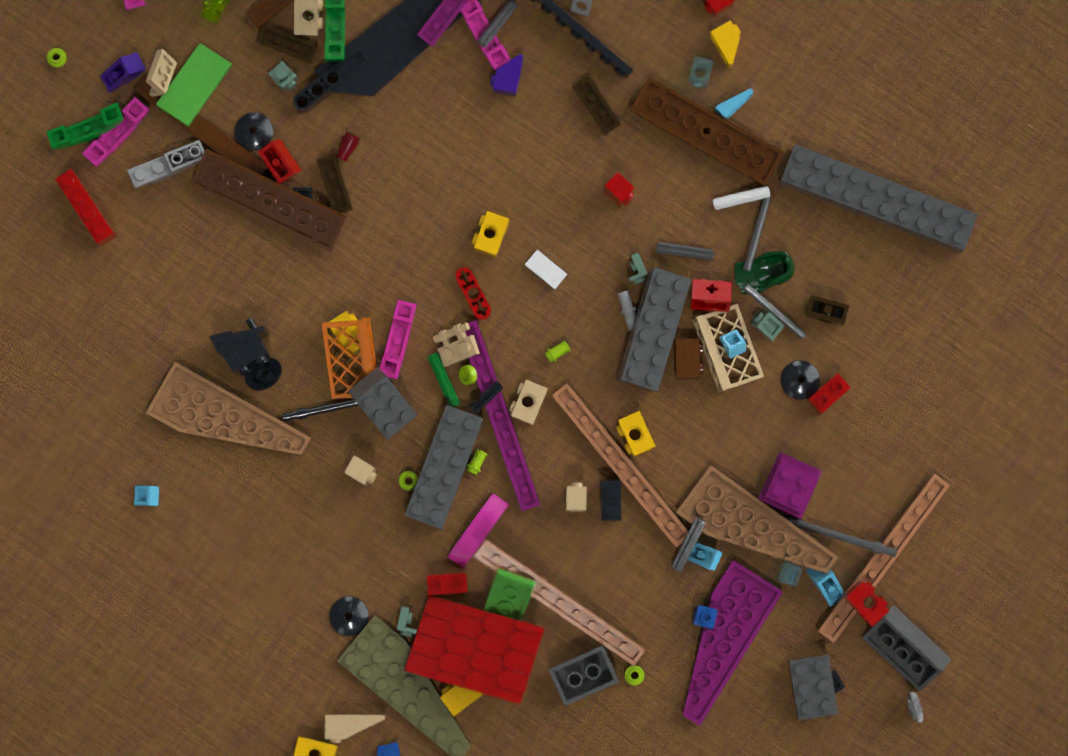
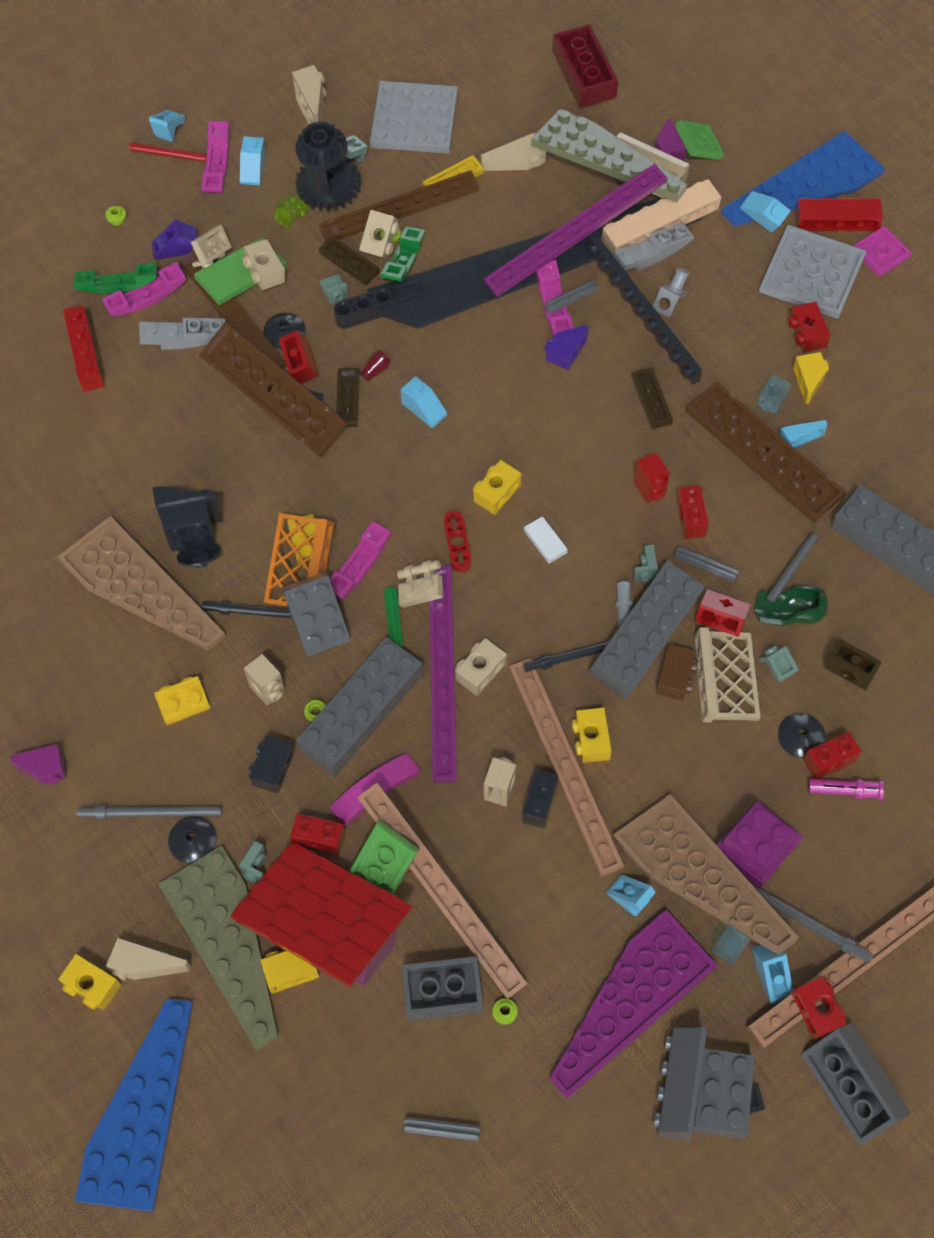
camera: 20 degrees right, 20 degrees down
(146, 495) = (22, 643): medium azure slope -> none
(208, 594) = (41, 764): none -> magenta slope
(211, 66) = (263, 264): none -> tan brick
(270, 617) = (103, 811): none -> dark grey bar
(298, 505) = (181, 700): none -> yellow bracket
(389, 537) = (271, 763): none -> black brick
(402, 171) = (422, 402): none -> medium azure slope
(467, 374) = (422, 618): lime tile -> none
(476, 462) = (399, 713): lime pin -> none
(486, 396) = (434, 644): black axle -> none
(557, 351) = (530, 624): lime pin -> none
(580, 382) = (547, 661): none -> black bar
(661, 208) = (692, 512): none -> red brick
(688, 544) = (617, 874): dark grey axle -> none
(704, 616) = (612, 963): blue bracket -> none
(733, 343) = (734, 671): medium azure slope -> none
(742, 197) = (785, 526): white axle -> none
(774, 311) = (785, 640): dark grey bar -> none
(780, 690) = (681, 1083): none -> dark grey slope
(856, 414) = (861, 789): none -> dark pink pin
(914, 707) = (849, 1160): light grey gear -> none

